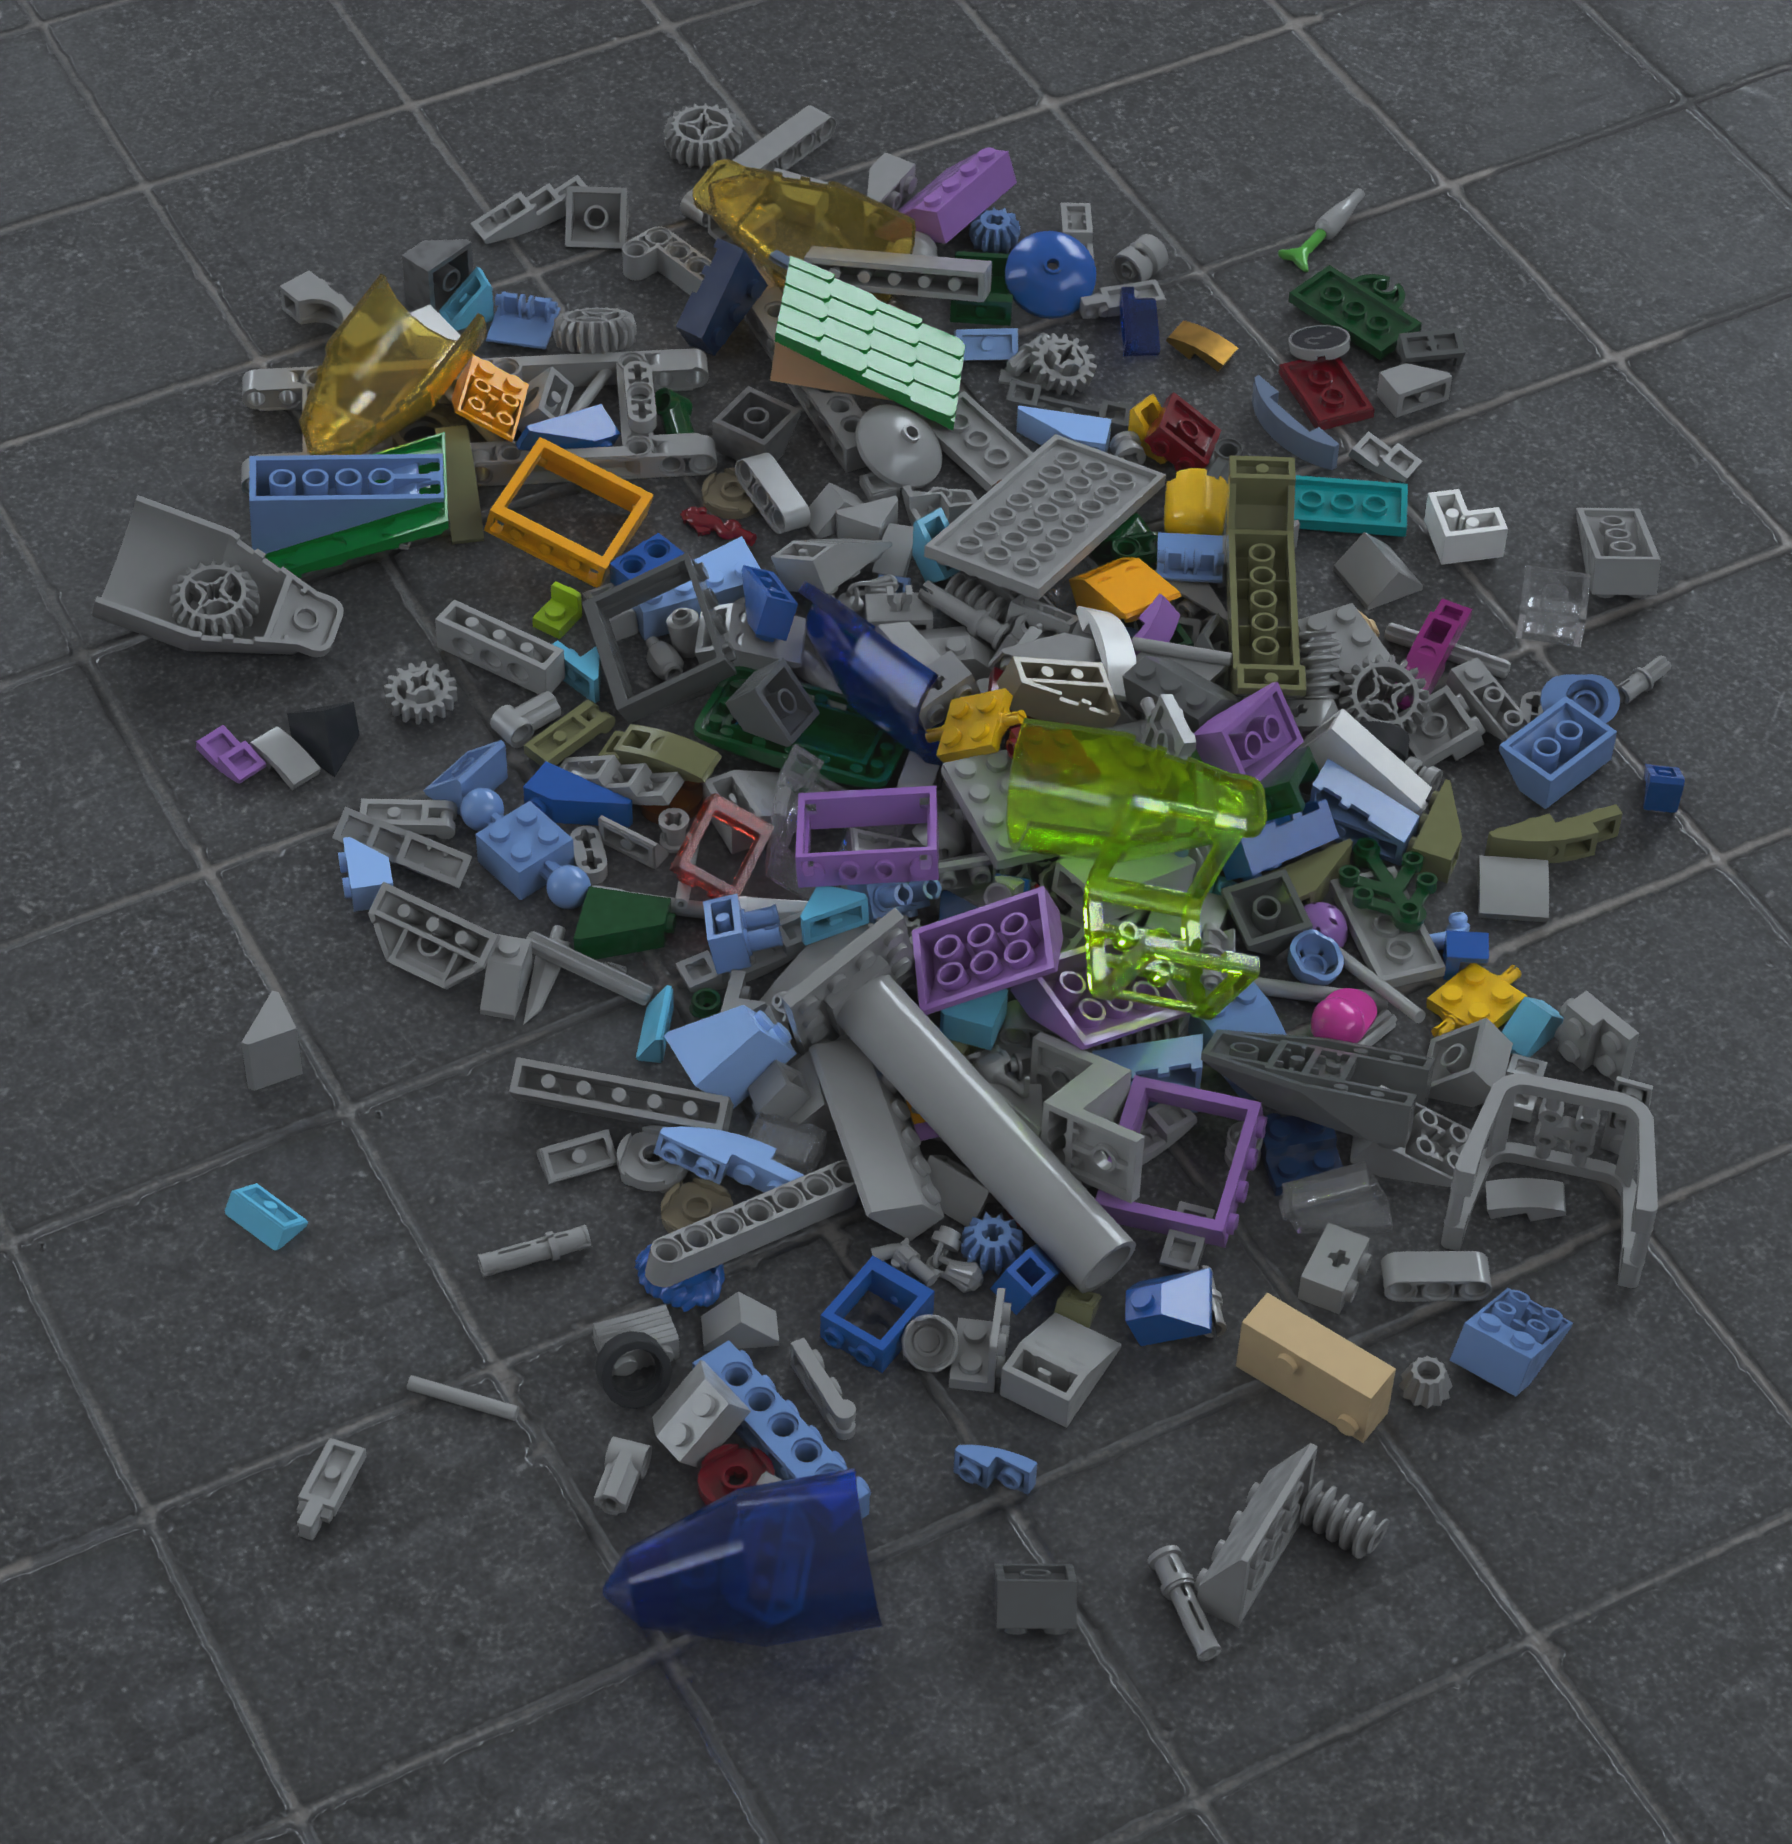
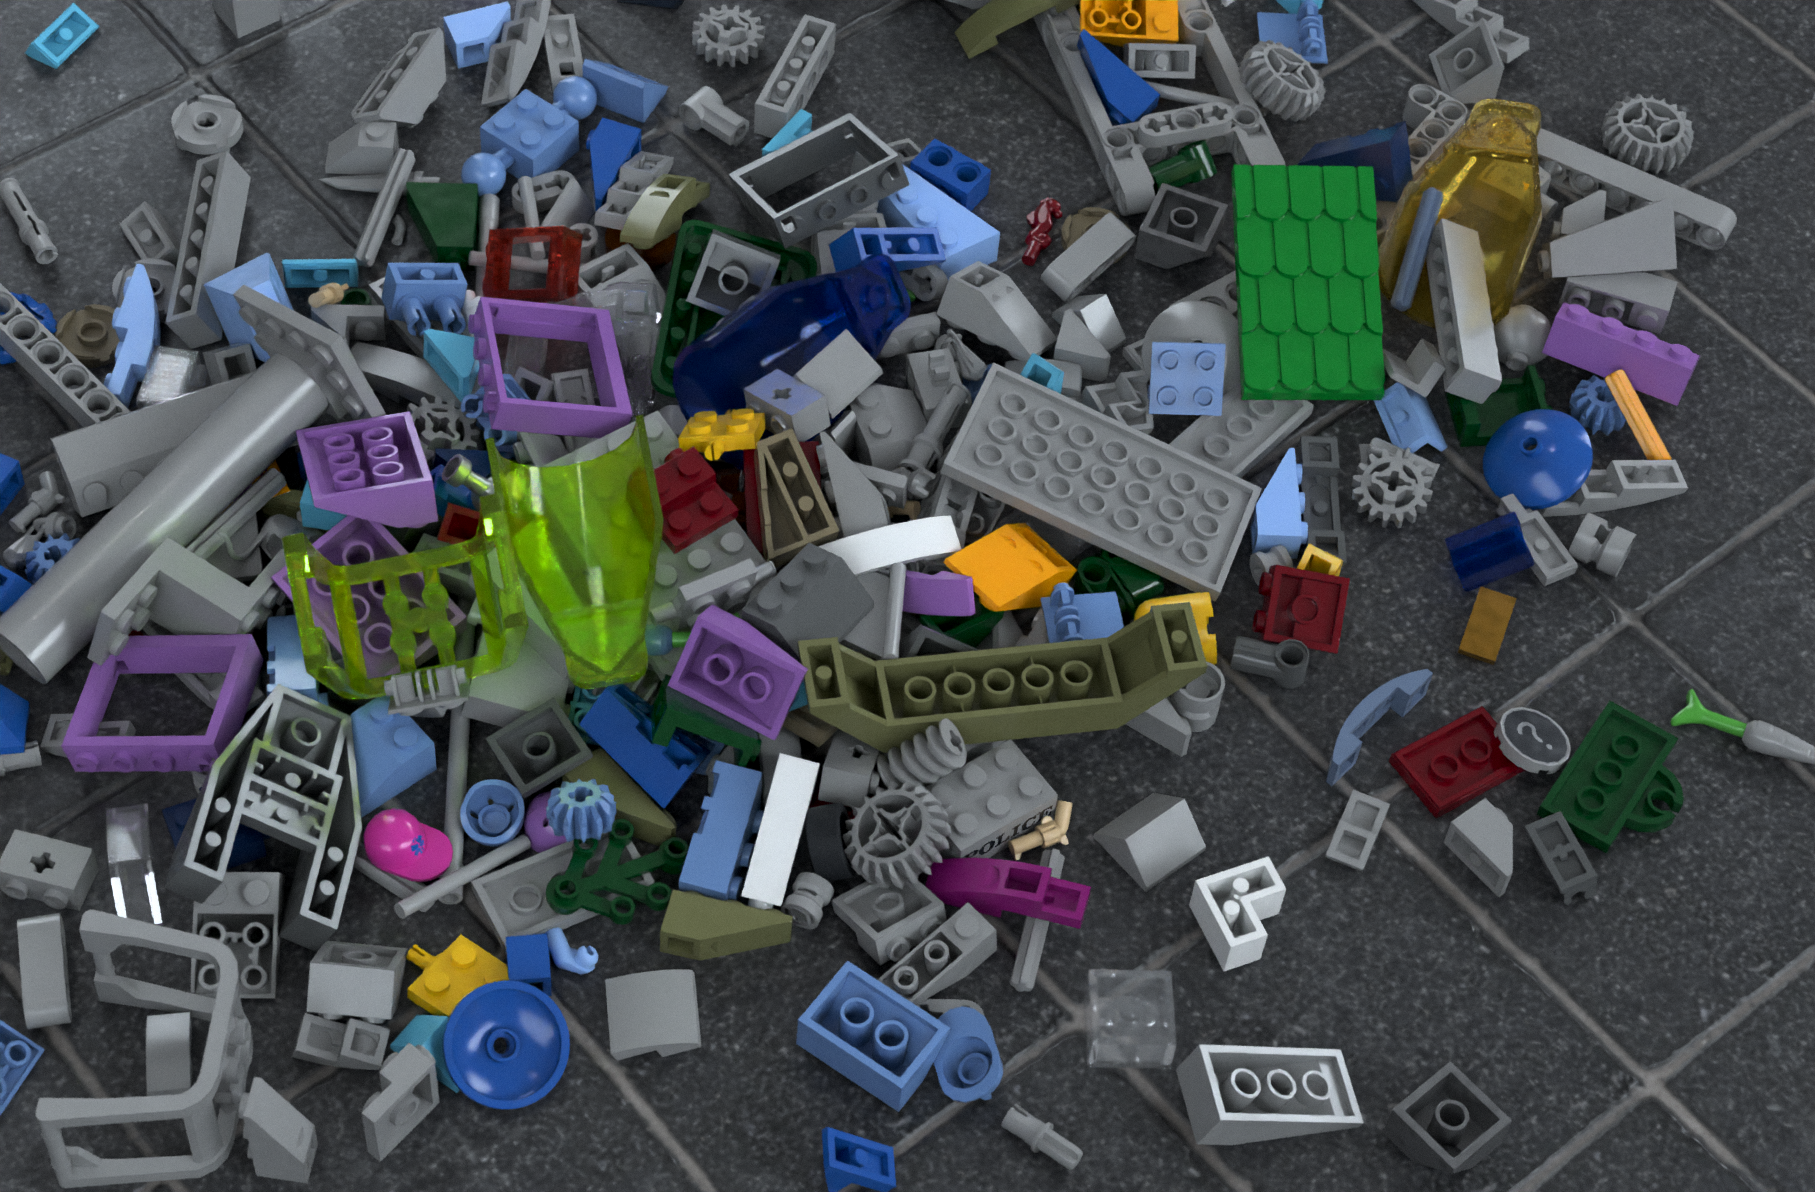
camera: 75 degrees right, 5 degrees up
(438, 1115) = (190, 118): none -> light grey plate
(552, 546) = (1009, 42): light orange window -> none
(559, 612) = (878, 121): lime bracket -> none
(569, 733) = (700, 151): olive plate -> none
(629, 857) = (530, 214): none -> light grey bar
(706, 1008) = (329, 294): none -> tan piece
(844, 155) = (1624, 244): none -> light grey slope
(942, 448) = (1186, 378): none -> medium blue hinge
(949, 313) = (1419, 371): none -> light grey panel
(1024, 208) = (1636, 416): none -> light orange axle
(1341, 883) = (581, 810): none -> medium blue gear
(1351, 505) = (1253, 790): teal plate -> none
(1544, 968) = (534, 1039): none -> blue dish
(1555, 841) = (735, 1046): olive slope -> none
(1656, 455) = (1447, 1123): none -> flat silver slope

